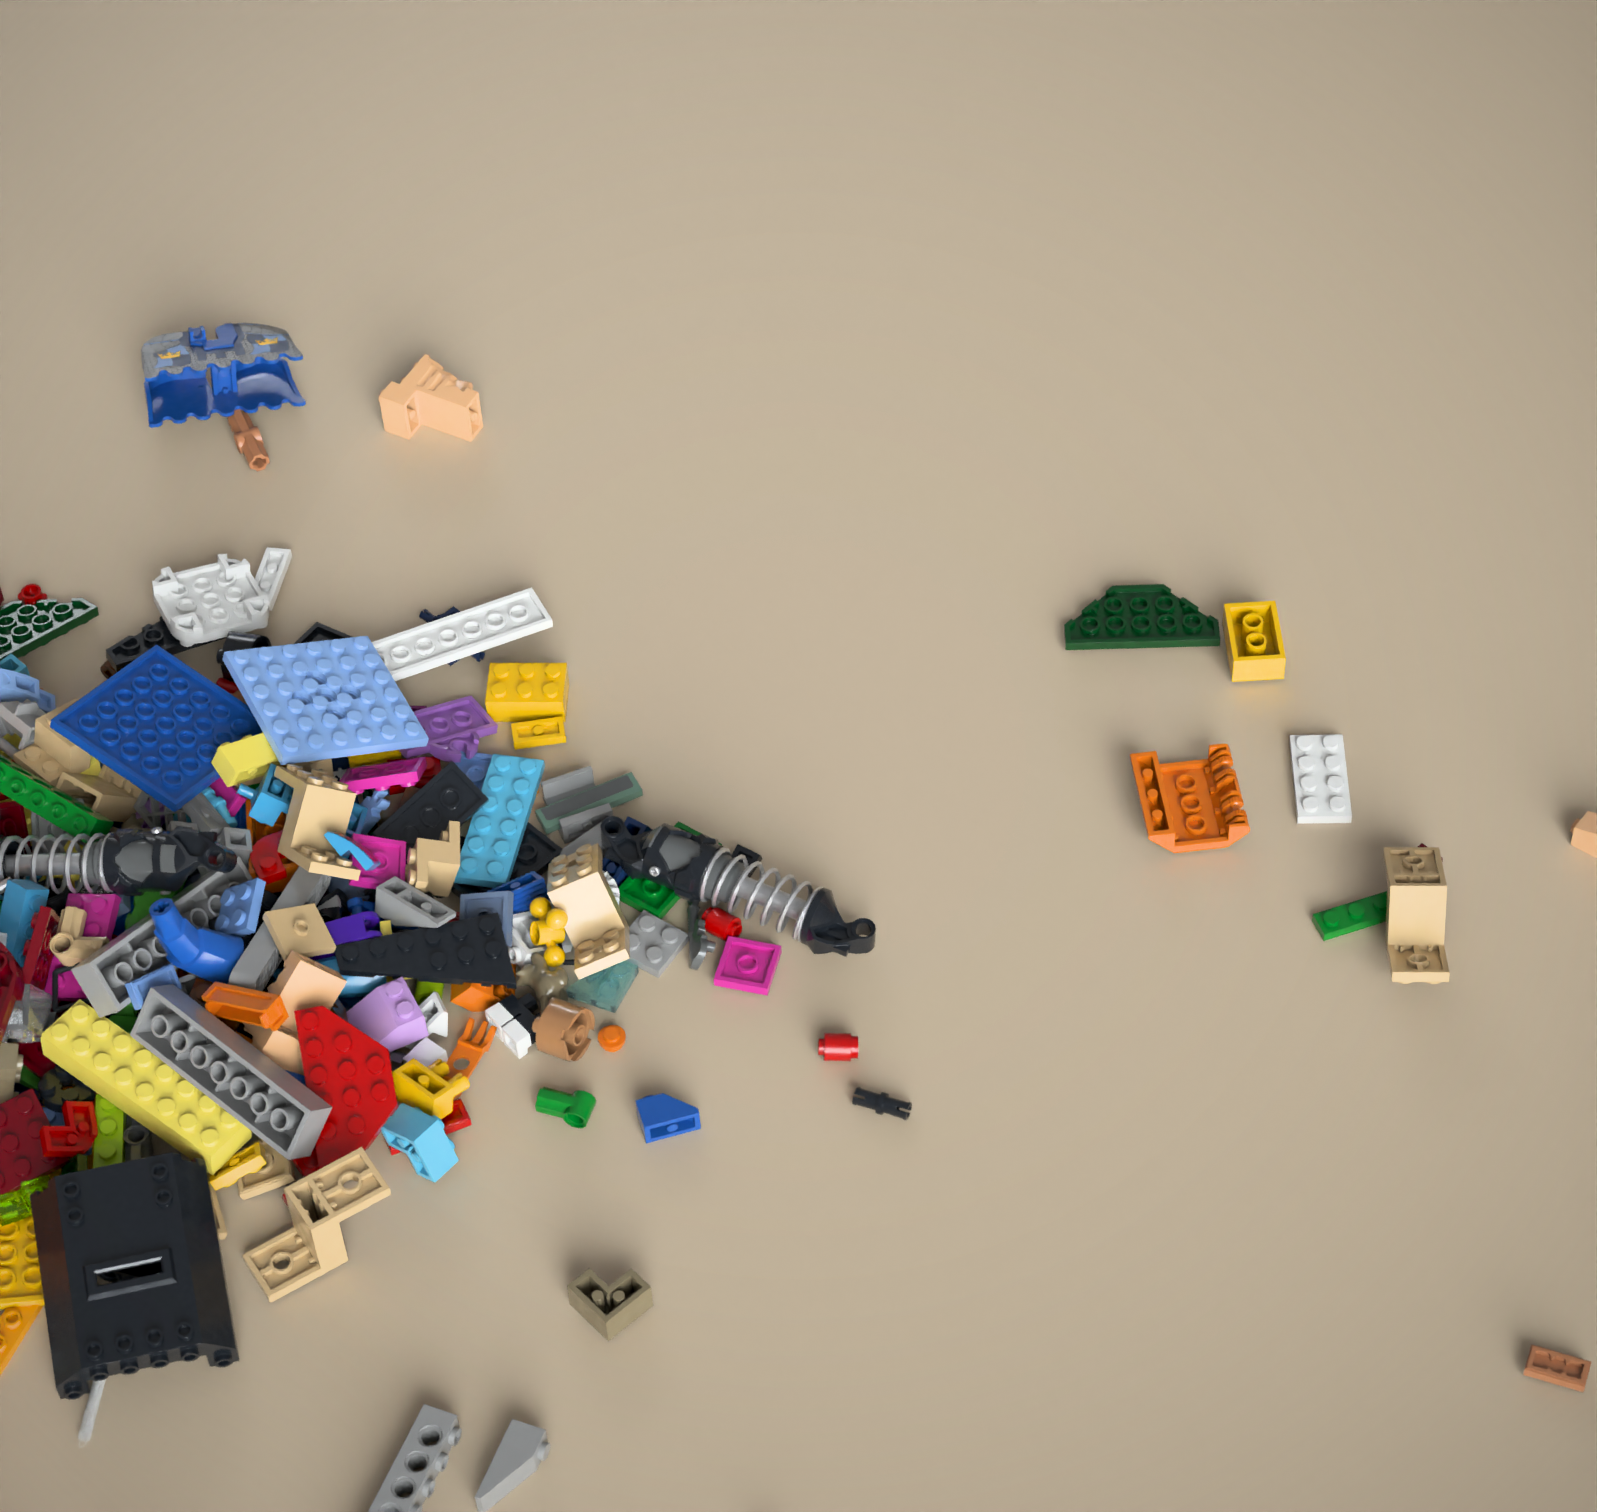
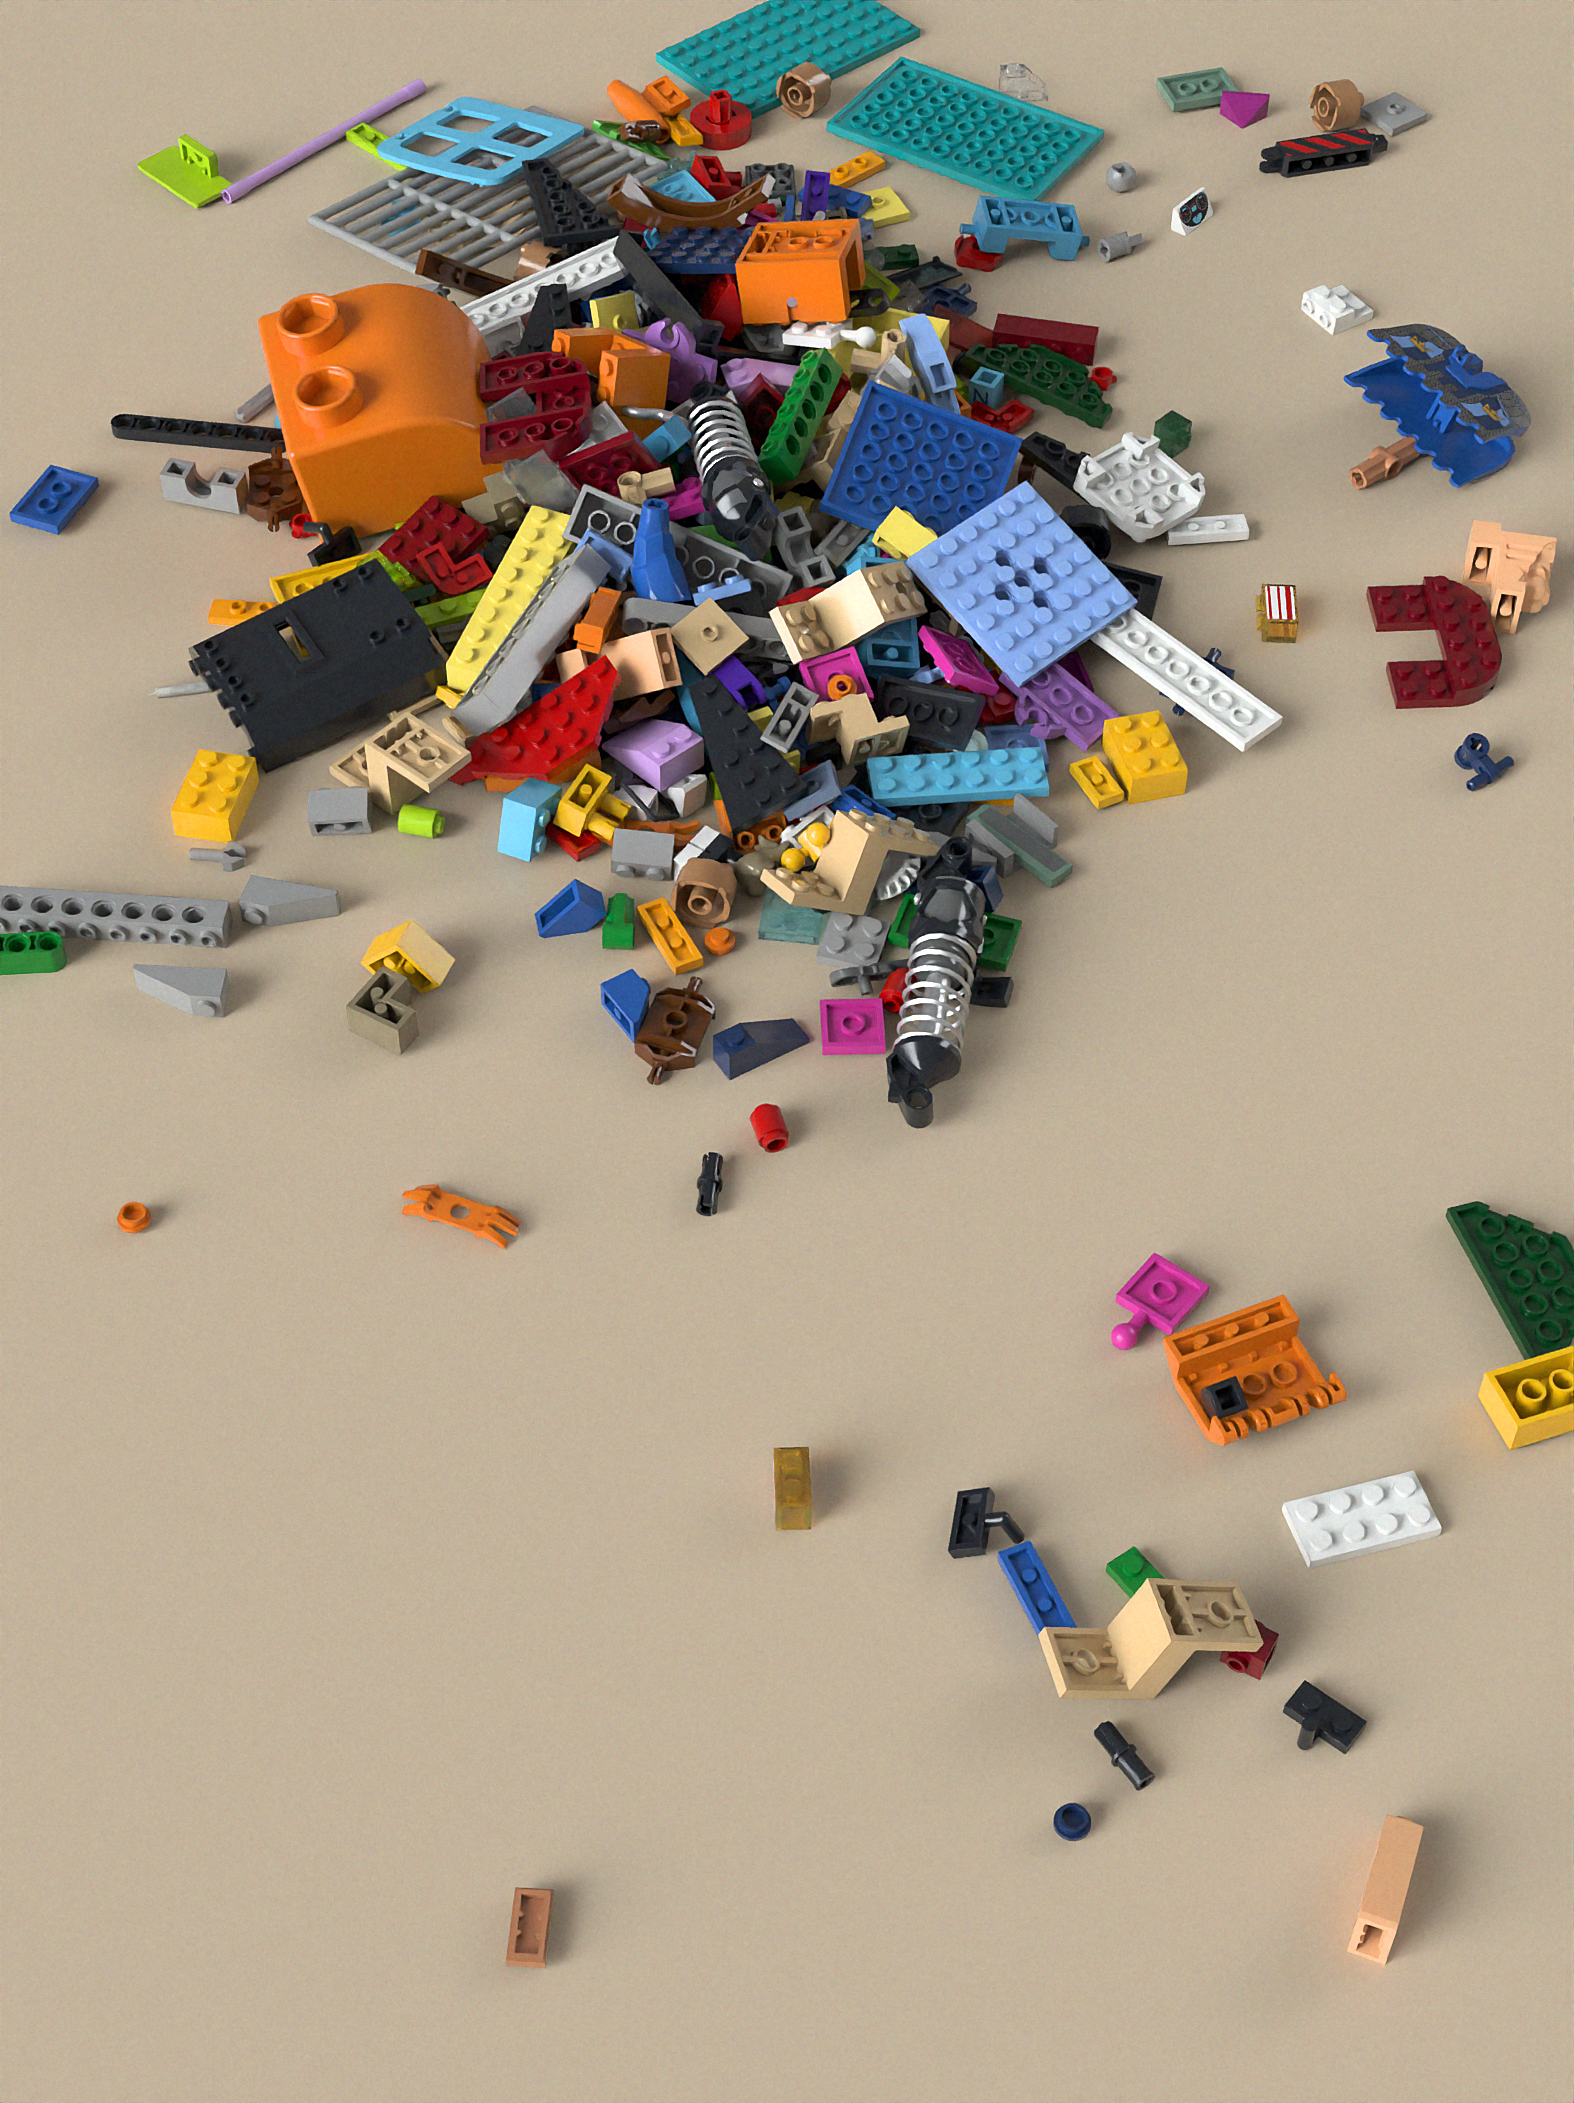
camera: 70 degrees right, 0 degrees up
(29, 413) = (1335, 308): none -> white plate
(51, 674) = (1007, 419): none -> red plate
(140, 565) = (1173, 433): none -> clear green brick
(267, 1400) = (215, 796): none -> yellow brick
(336, 1296) = (339, 811): none -> light grey brick
(340, 1413) = (230, 857): none -> light grey bar
(345, 846) = (827, 647): slope -> none
(373, 1235) = (420, 821): none -> lime brick
(392, 864) = (836, 694): none -> orange plate
(397, 560) = (1278, 613): none -> brick
(429, 1371) = (284, 902): none -> light grey slope
(438, 454) = (1463, 634): none -> dark red plate
(450, 1043) = (674, 814): none -> black piece
(494, 1067) = (642, 854): none -> light grey brick
(538, 1140) = (571, 911): none -> blue slope
(548, 1270) = (410, 953): none -> yellow brick
(594, 1071) = (669, 936): none -> light orange plate
(622, 486) = (1480, 761): none -> dark blue piece
(717, 1103) = (674, 1046): none -> reddish brown plate
(744, 1037) = (754, 1044): none -> dark blue slope
(840, 1303) = (479, 1220): none -> orange piece
(1092, 836) = (1157, 1295): none -> dark pink plate
(1209, 1111) = (792, 1488): none -> clear yellow brick
(1210, 819) = (1223, 1398): none -> black brick
(1270, 1004) = (973, 1522): none -> black plate
(1339, 983) = (1034, 1587): none -> blue plate
(1483, 845) = (1323, 1718): none -> black plate
(1486, 968) = (1123, 1755): none -> black axle
(1533, 1012) = (1072, 1822): none -> dark blue plate

